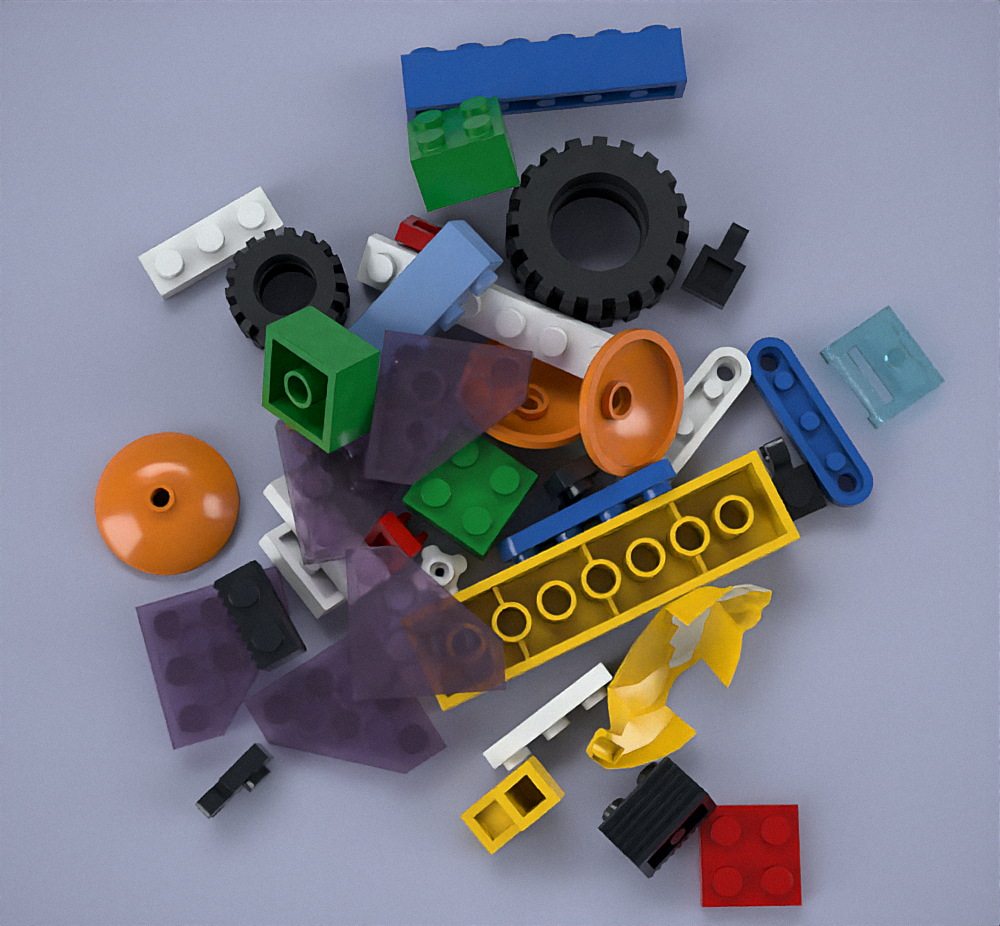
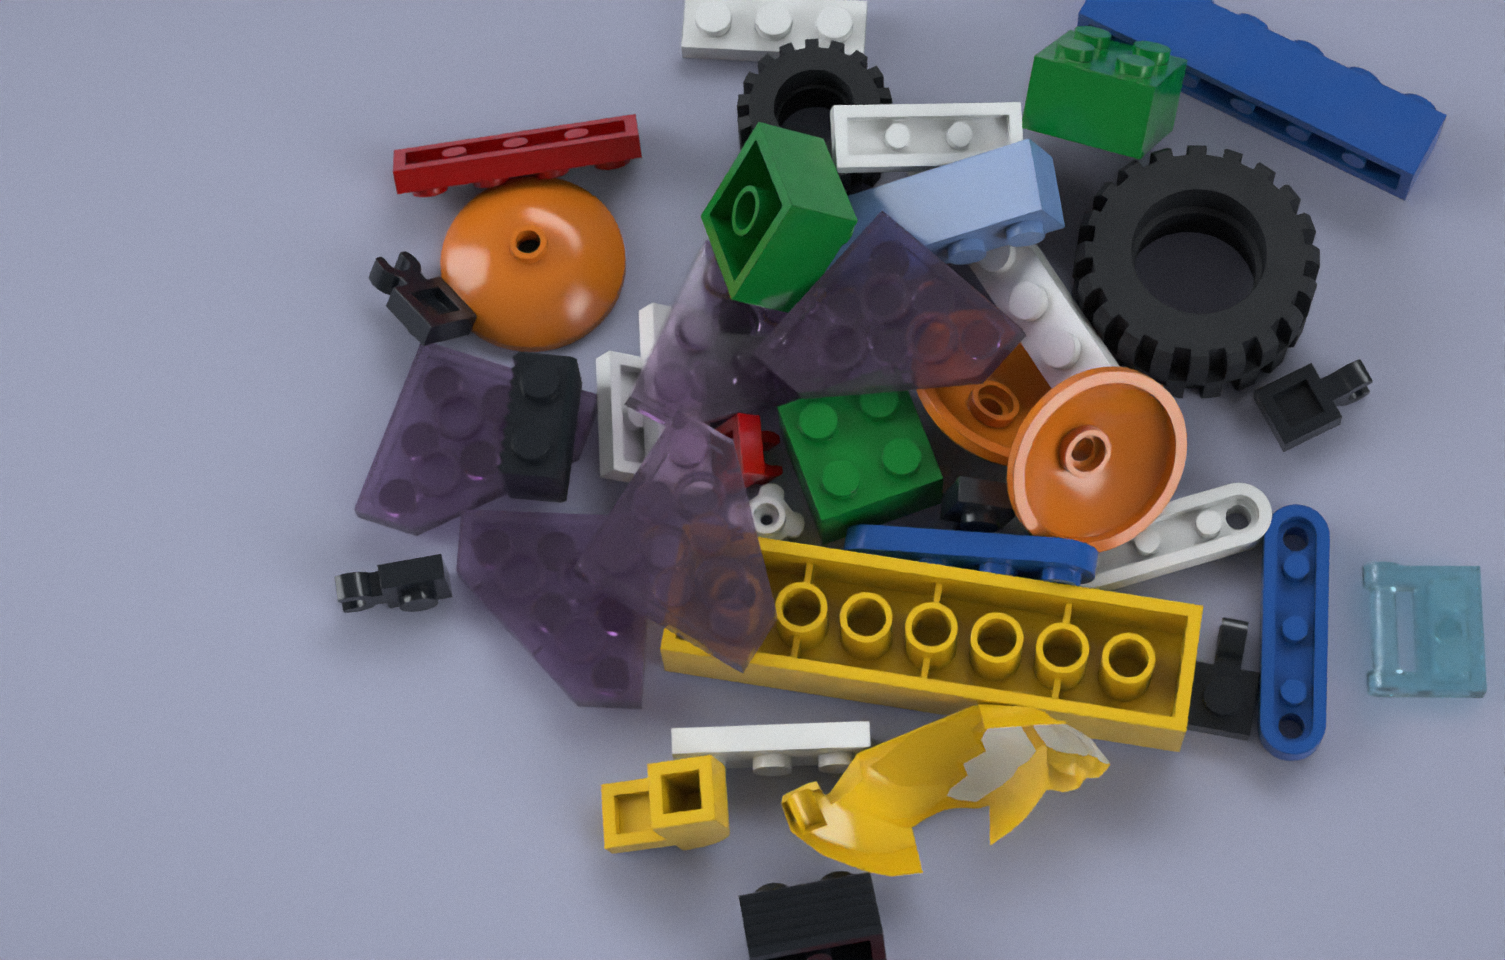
camera: 45 degrees right, 10 degrees down
(105, 441) = (496, 158): none -> red plate
(119, 583) = (422, 305): none -> black plate
(372, 259) = (919, 134): none -> white plate

